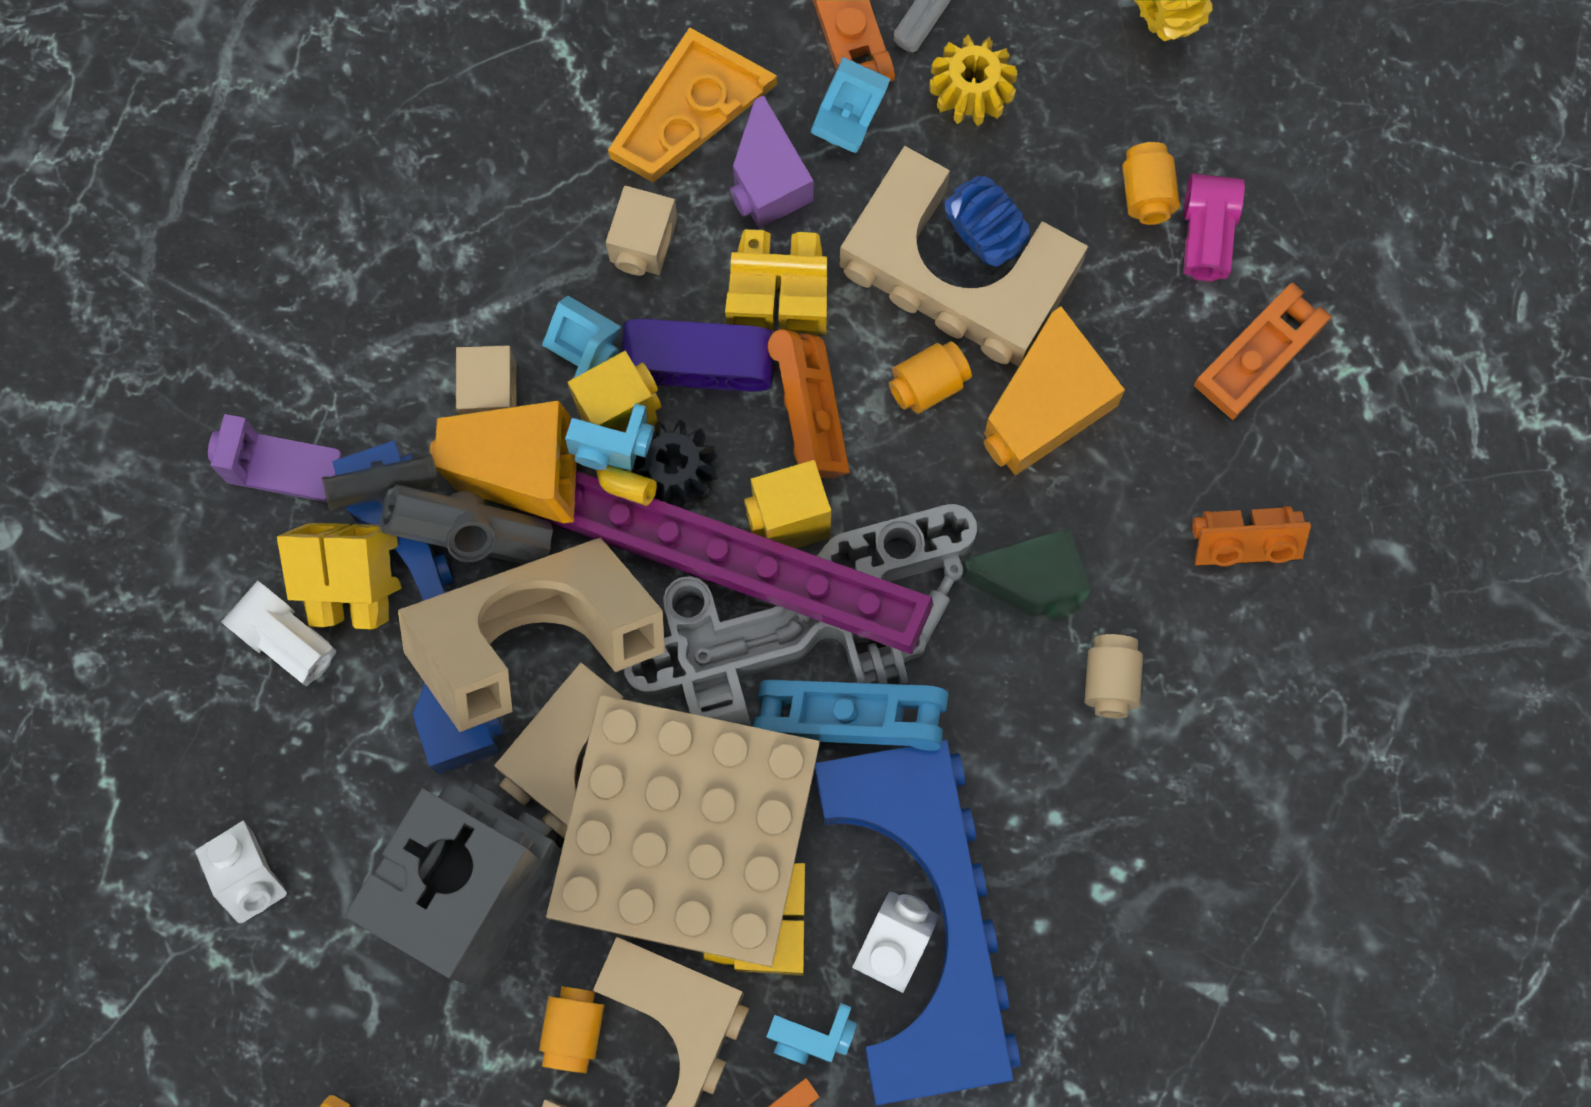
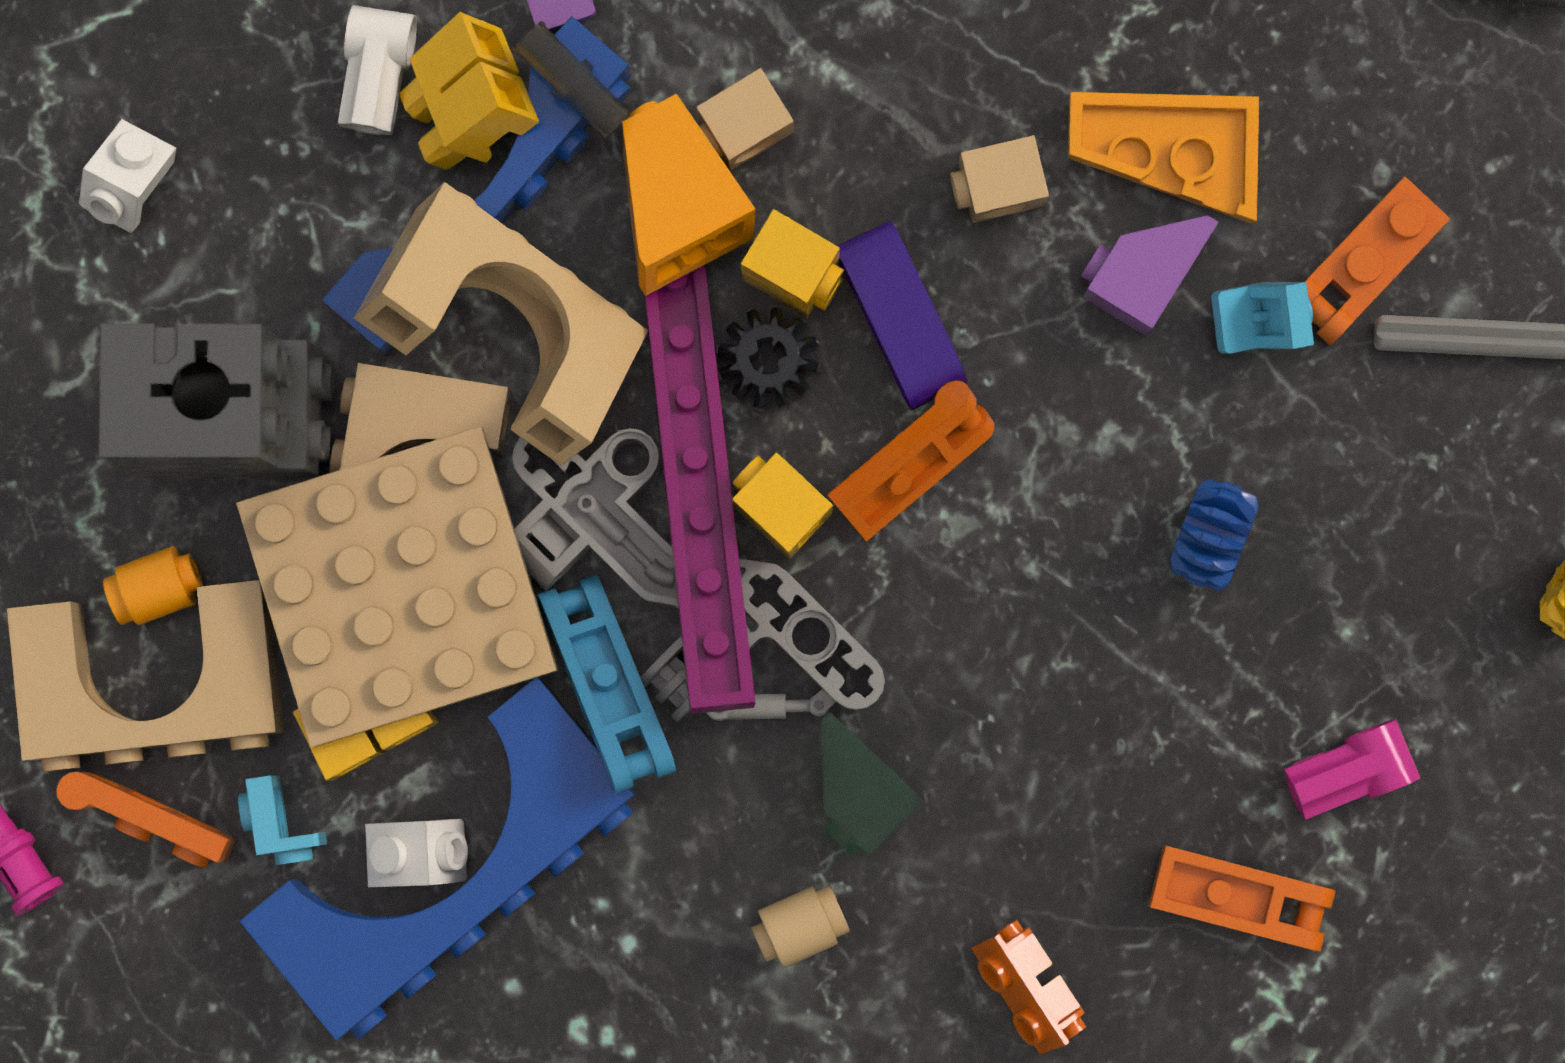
camera: 65 degrees right, 10 degrees up
(441, 520) = (579, 191): dark grey piece -> none
(581, 335) = (850, 189): medium azure bracket -> none
(601, 446) = (726, 280): medium azure bracket -> none
(627, 485) = (717, 310): yellow arm -> none
(758, 275) = (1016, 329): yellow hips -> none
(929, 377) = (1012, 567): light orange brick -> none
(973, 97) = (1382, 452): yellow gear -> none
(999, 316) = (1120, 607): tan arch -> none
(1051, 396) = (1061, 702): light orange slope -> none
(1150, 183) = (1361, 682): light orange brick -> none

